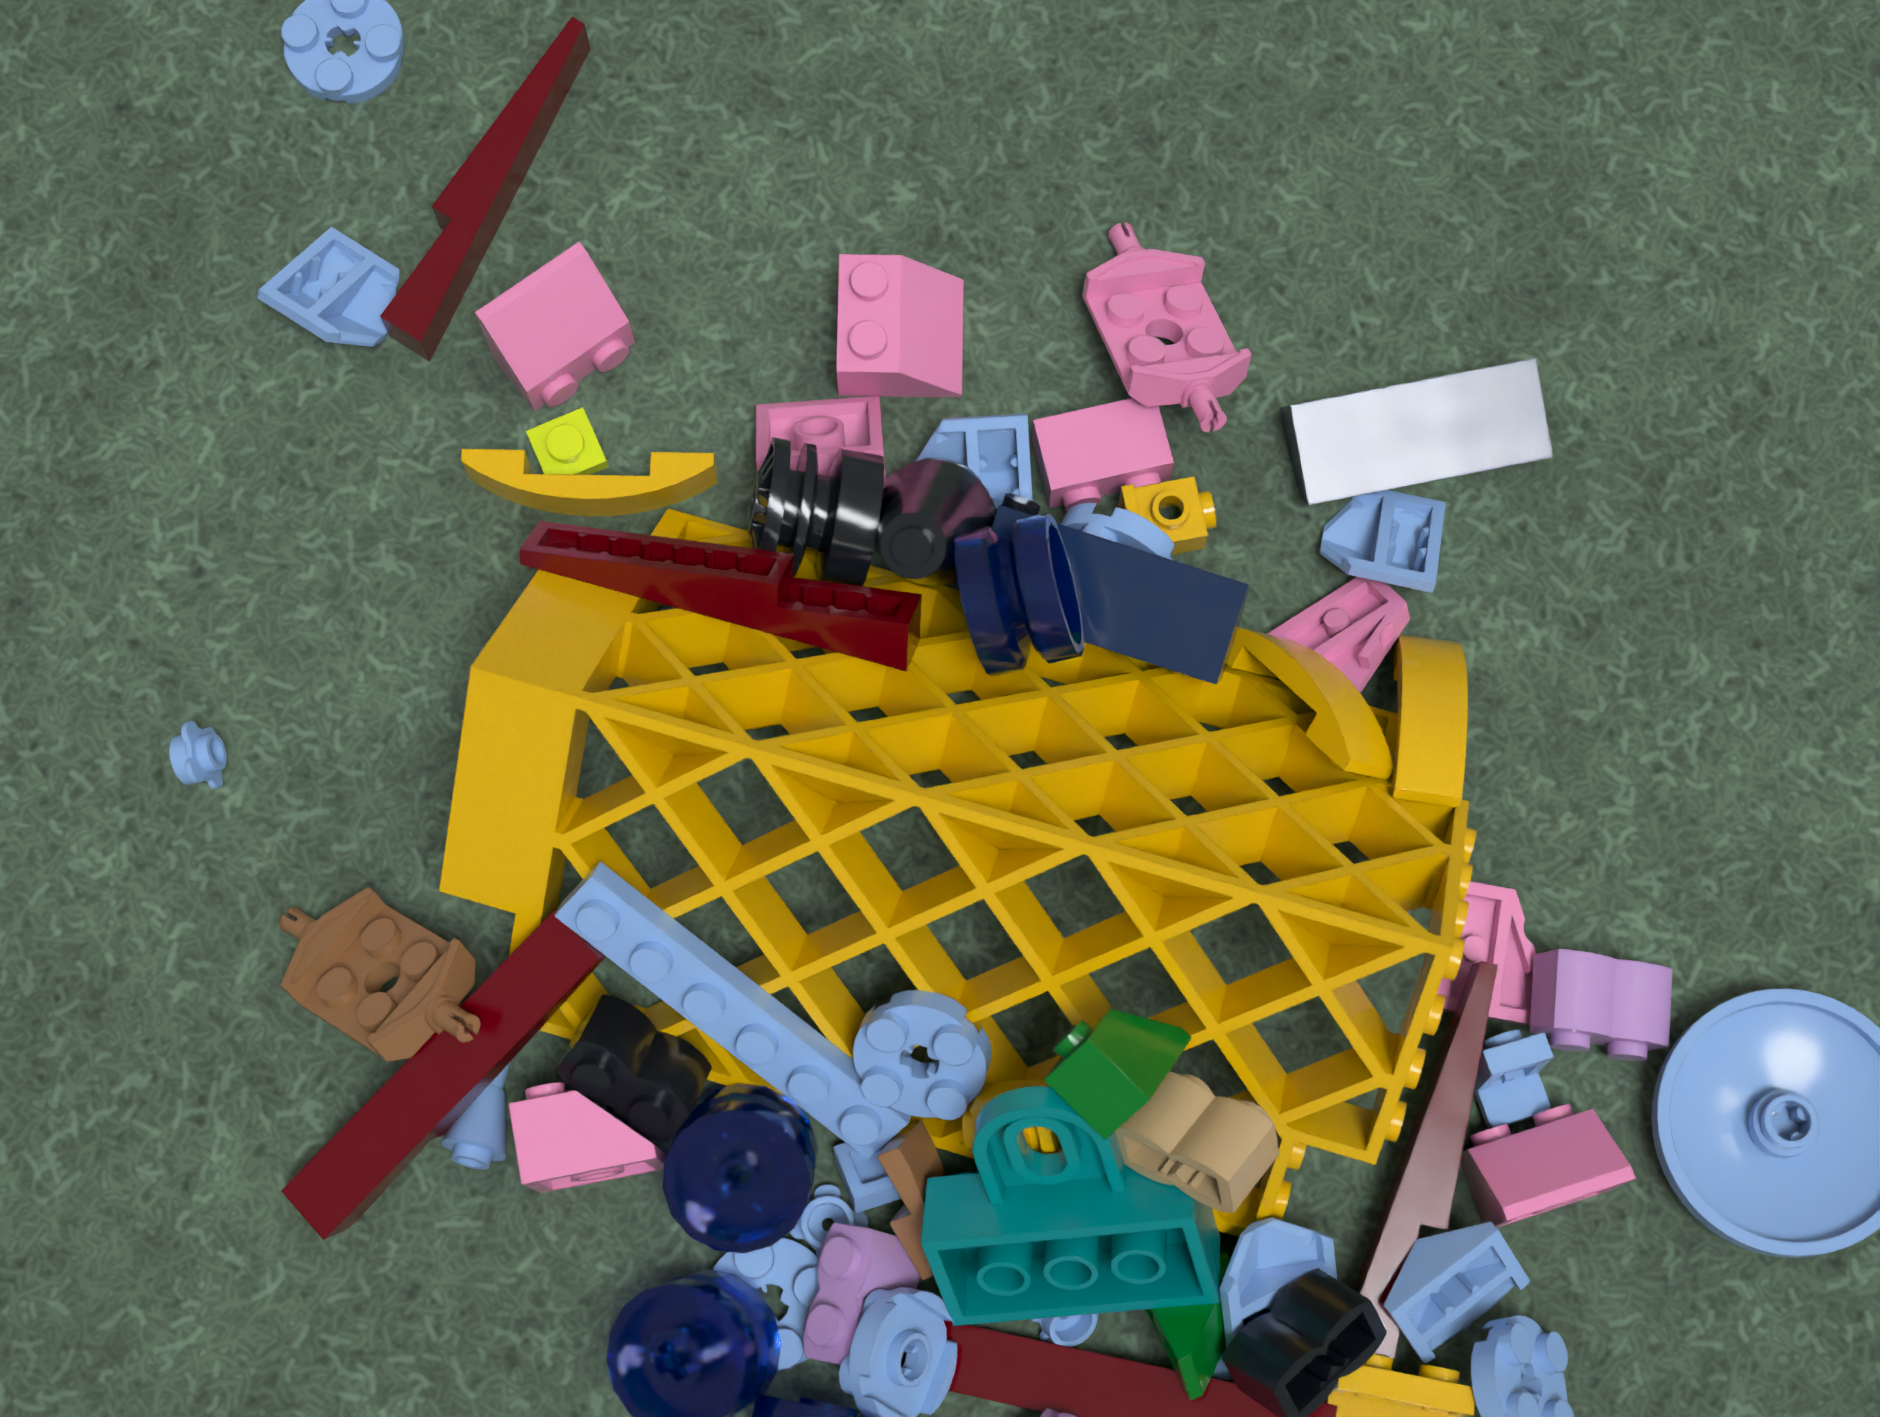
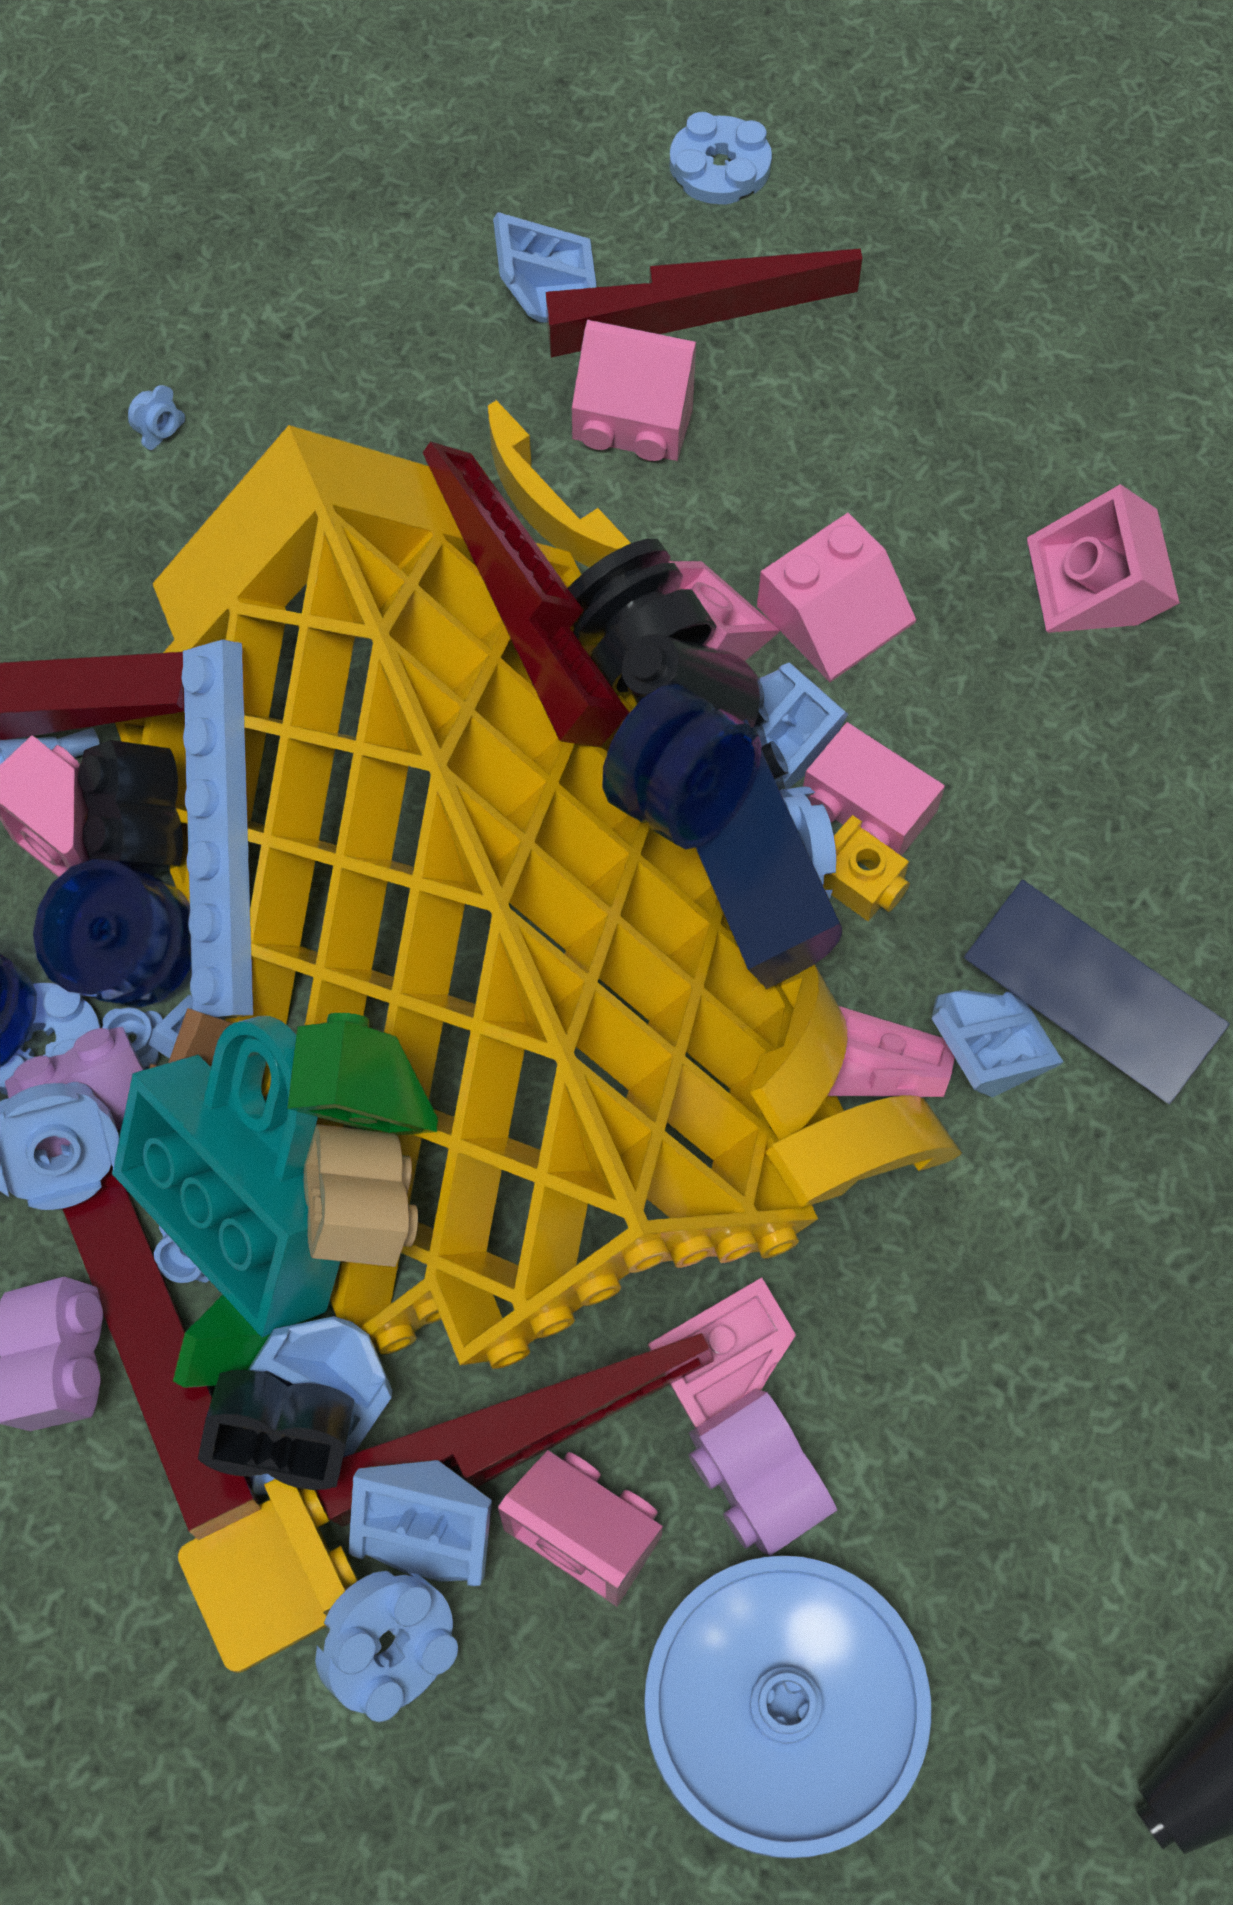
camera: 50 degrees right, 10 degrees down
(355, 952) = (73, 608): medium nougat plate -> none
(567, 445) = (566, 470): neon yellow plate -> none
(915, 1087) = (257, 962): light blue plate -> none
(1047, 94) = (1103, 565): none -> bright pink slope
(1162, 296) = (1014, 735): bright pink plate -> none
(1509, 1079) = (639, 1446): light blue bracket -> none

